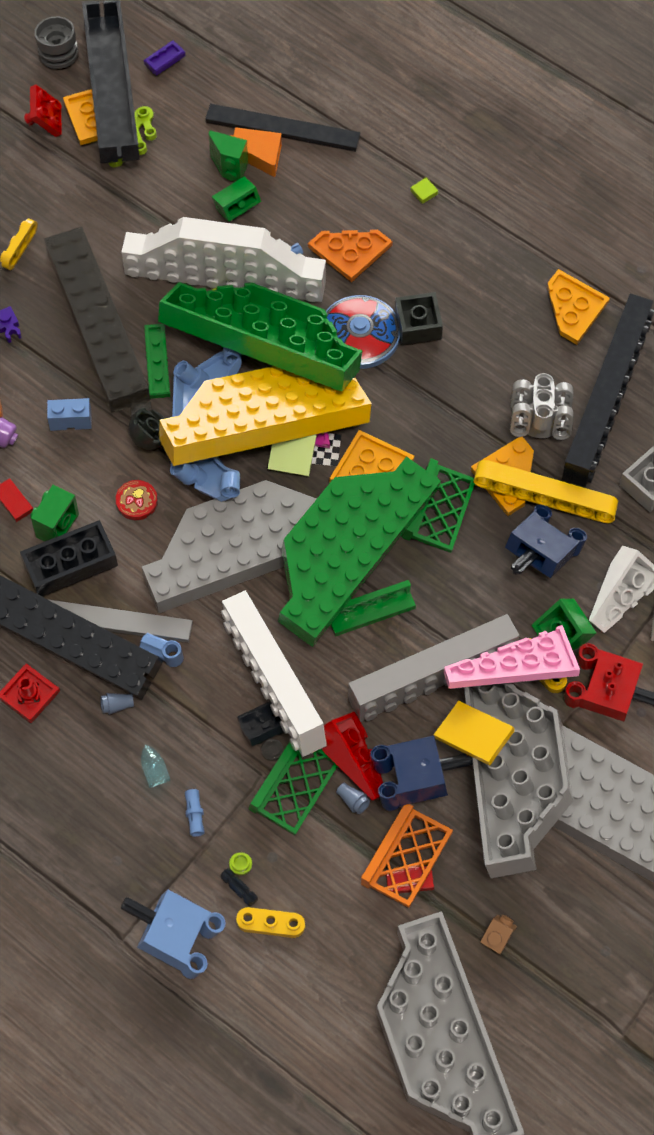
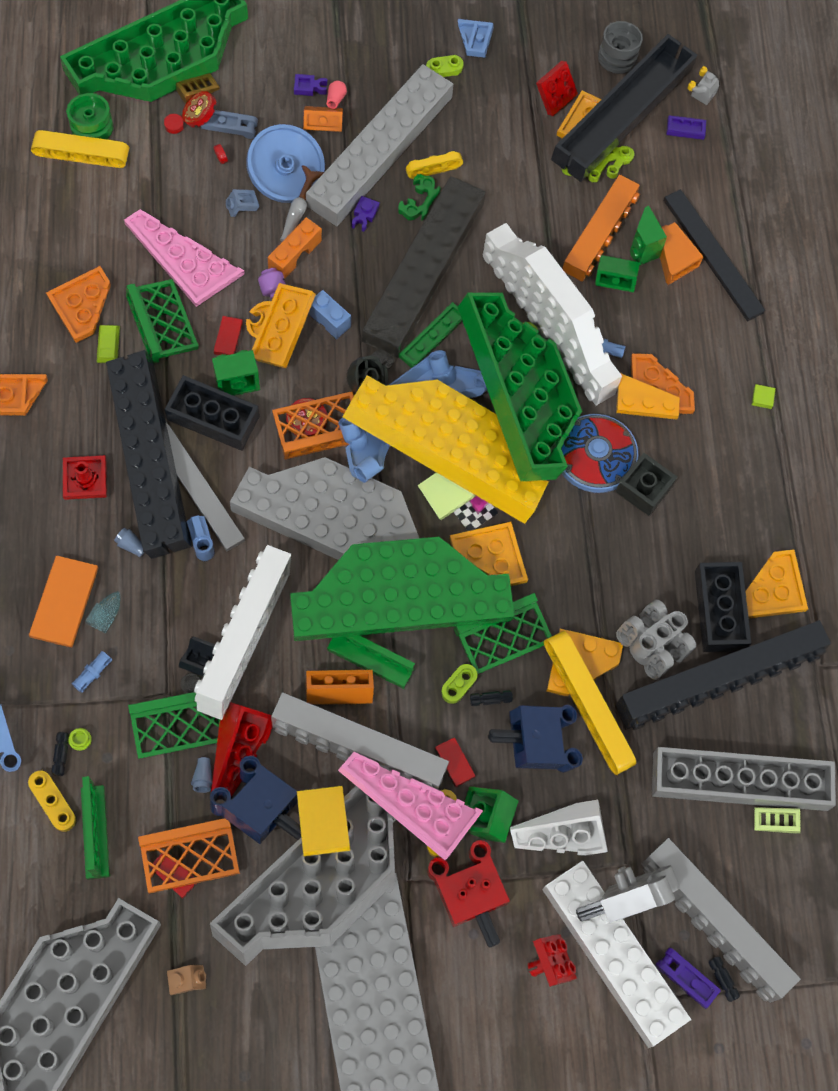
camera: 40 degrees right, 5 degrees up
(39, 291) = (426, 184): none -> green helmet
(43, 452) = (279, 324): none -> light orange plate
(117, 787) = (63, 601): none -> orange tile
(147, 18) = (706, 88): none -> light grey piece
(165, 507) = (315, 443): none -> orange fence
(187, 174) = (601, 227): none -> orange brick
(324, 907) = (94, 830): none -> green fence
(354, 264) = (645, 400): none -> light orange wing
(376, 646) = (339, 687): none -> orange brick
(448, 568) = (458, 684): none -> lime plate
(479, 555) = (489, 698): none -> black axle
(517, 617) = (458, 766): none -> red tile
(557, 348) = (722, 607): none -> black brick

